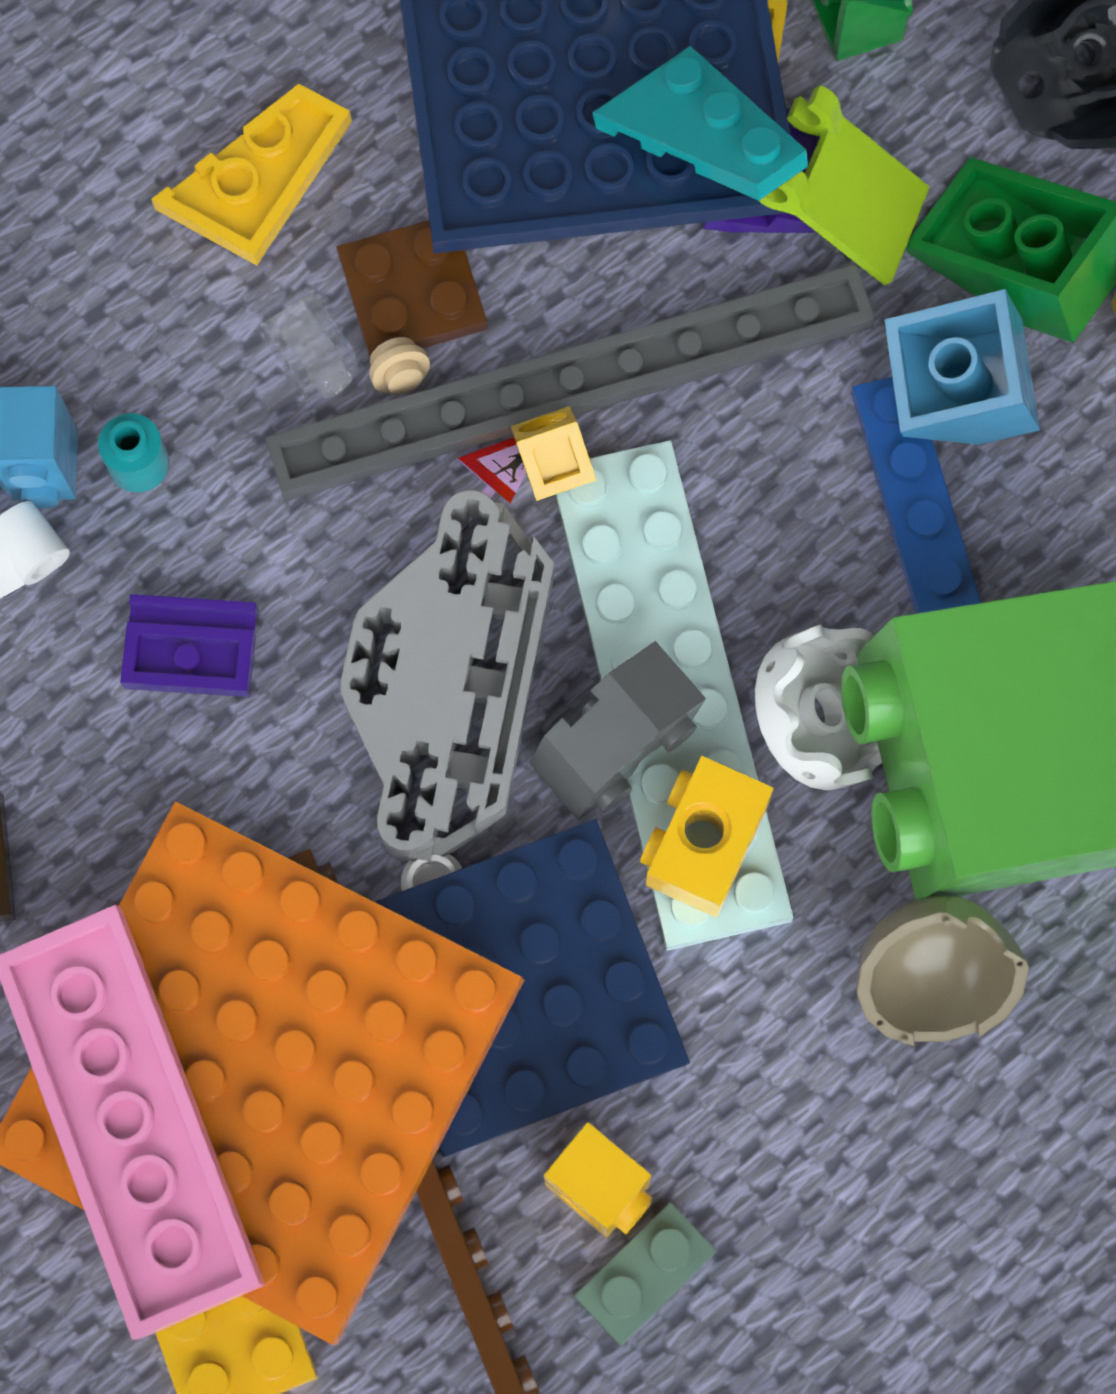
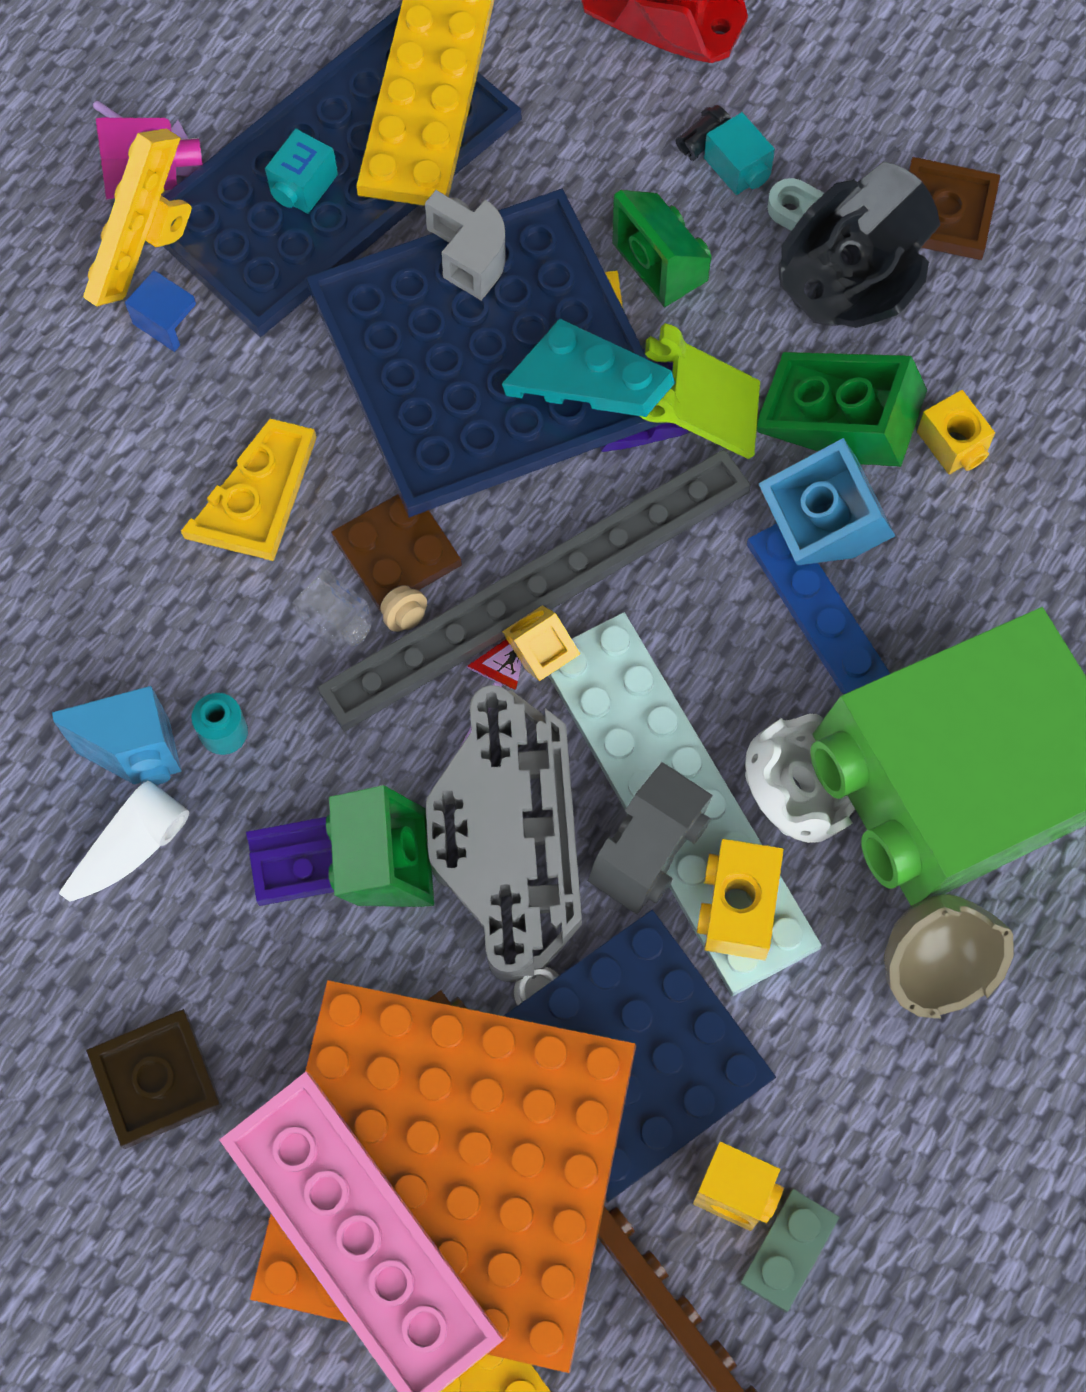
camera: 15 degrees left, 5 degrees down
(283, 658) = (379, 849): none -> green slope

